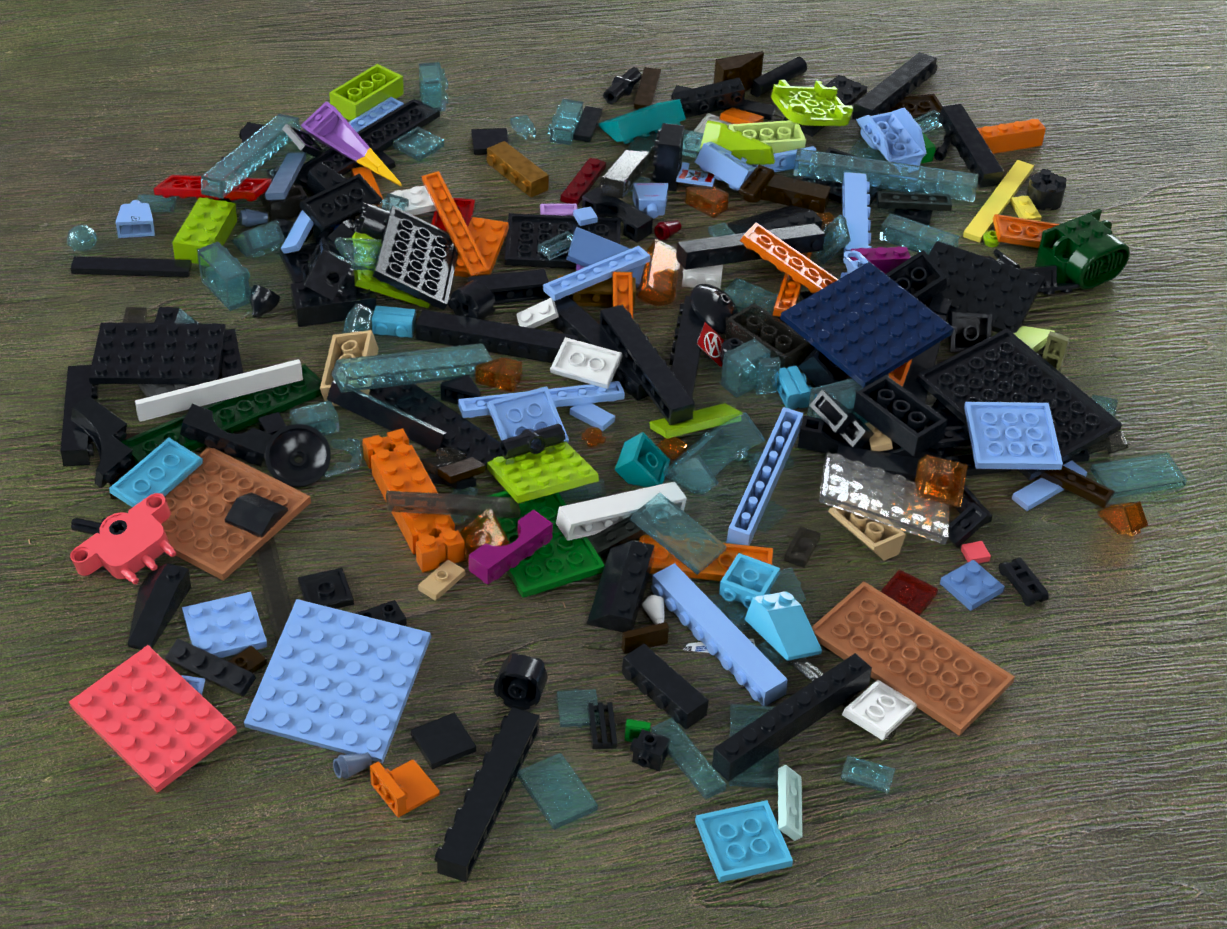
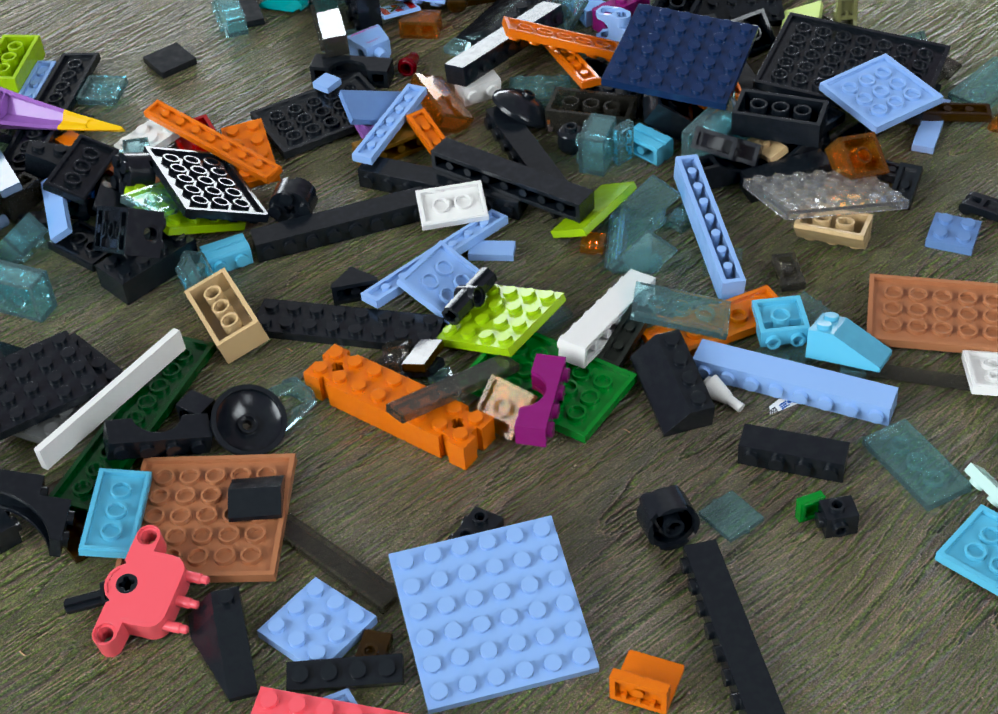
camera: 25 degrees left, 0 degrees up
(262, 300) = (74, 294): black helmet -> none
(319, 416) = (231, 373): clear light blue brick -> none
(326, 589) = (387, 534): black tile -> none
(351, 764) = (574, 690): sand blue cone -> none
(388, 416) = (303, 340): black tile -> none
(408, 367) = (292, 284): clear light blue brick -> none
(433, 85) = (74, 32): clear light blue brick -> none
(441, 580) = (493, 467): tan plate -> none
(443, 740) = (638, 616): black tile -> none
(499, 374) = (375, 253): clear orange slope -> none
(515, 285) = (318, 169): black brick -> none
(517, 169) = (221, 71): pearl gold brick -> none
(523, 125) = (191, 33): clear light blue plate -> none
(538, 314) = (363, 185): white plate -> none
(556, 246) = (329, 118): clear light blue tile -> none
(557, 209) = (291, 90): lavender tile -> none
(557, 791) = (788, 602): clear light blue tile -> none
(583, 181) = (291, 58): dark red plate -> none
(593, 436) = (512, 268): clear orange plate -> none
(600, 708) = (775, 517): black tile -> none
(642, 462) = (580, 268): teal slope -> none
(650, 636) = (733, 419): dark brown tile -> none
(690, 759) = (879, 507): clear light blue tile -> none
(710, 343) = (545, 139): red sticker -> none
(791, 717) = (934, 420): black brick -> none
(910, 592) = (910, 263): clear red tile -> none
(976, 551) = (929, 205): coral tile -> none

